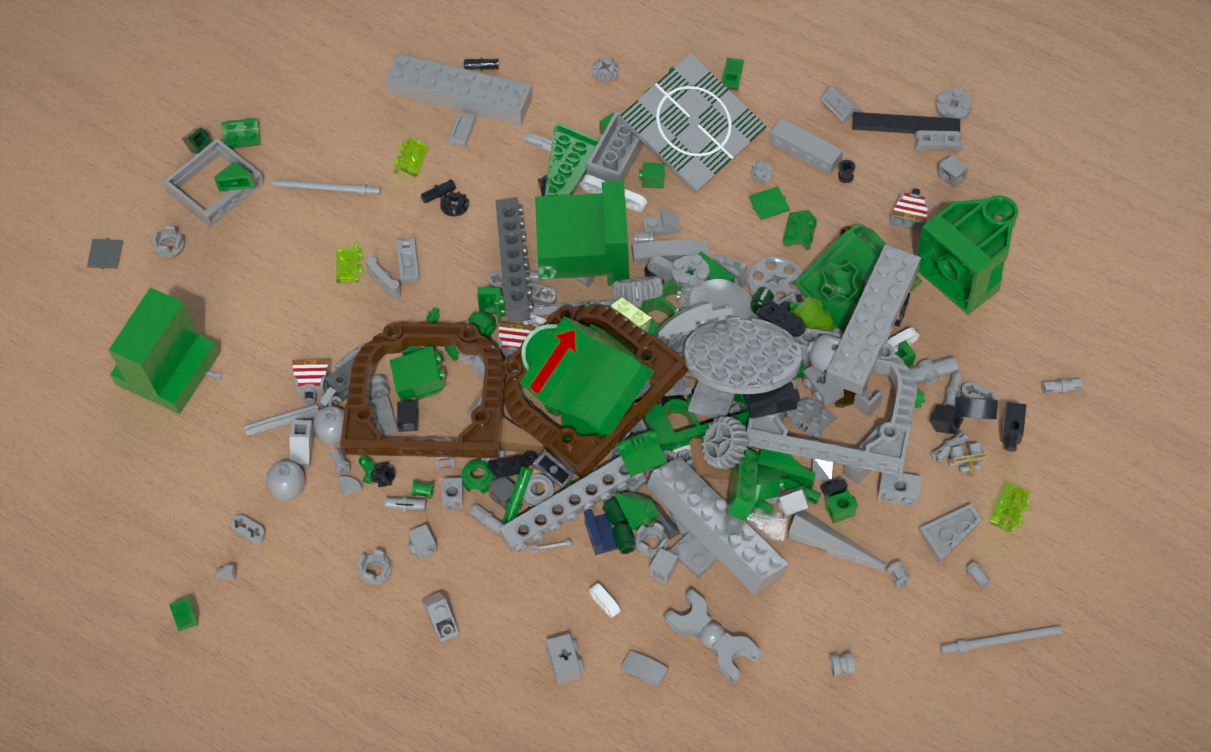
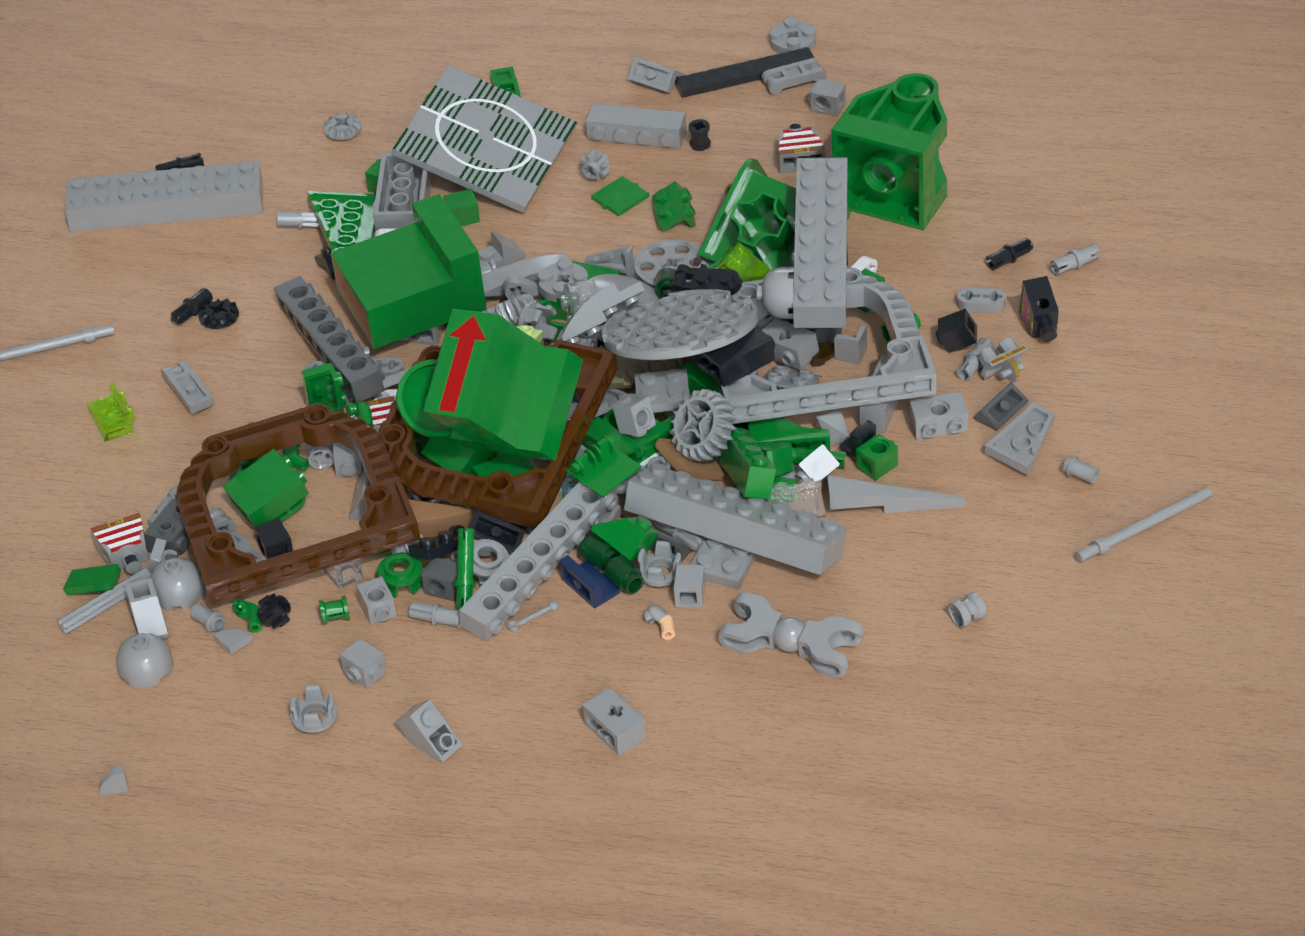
camera: 20 degrees left, 15 degrees down
(183, 614) = (79, 843): green panel -> none
(245, 532) = (119, 729): light grey beam -> none
(279, 400) = (92, 579): none -> green tile
(383, 278) = (165, 414): light grey plate -> none
(411, 157) = (136, 282): clear neon green bracket -> none
(419, 504) = (319, 633): light grey pin -> none
(462, 129) = (188, 238): light grey tile -> none
(507, 335) = (361, 410): none -> green arm
(604, 600) = (633, 645): white beam -> none
(635, 584) = (656, 613): none -> arm
(645, 668) = (729, 697): light grey slope -> none
(652, 304) = (536, 314): none -> light grey piece
(680, 417) = (634, 415): none -> light grey brick
(899, 574) = (986, 500): light grey bush -> none
(931, 371) = (919, 288): light grey piece -> none
(949, 496) = (1001, 407): none -> dark grey slope
(953, 390) = (947, 302): light grey pin -> none
(977, 407) = (989, 308): black slope -> none
(1008, 507) = (1082, 392): clear neon green brick -> none
(1017, 362) = (1009, 254): none -> black axle

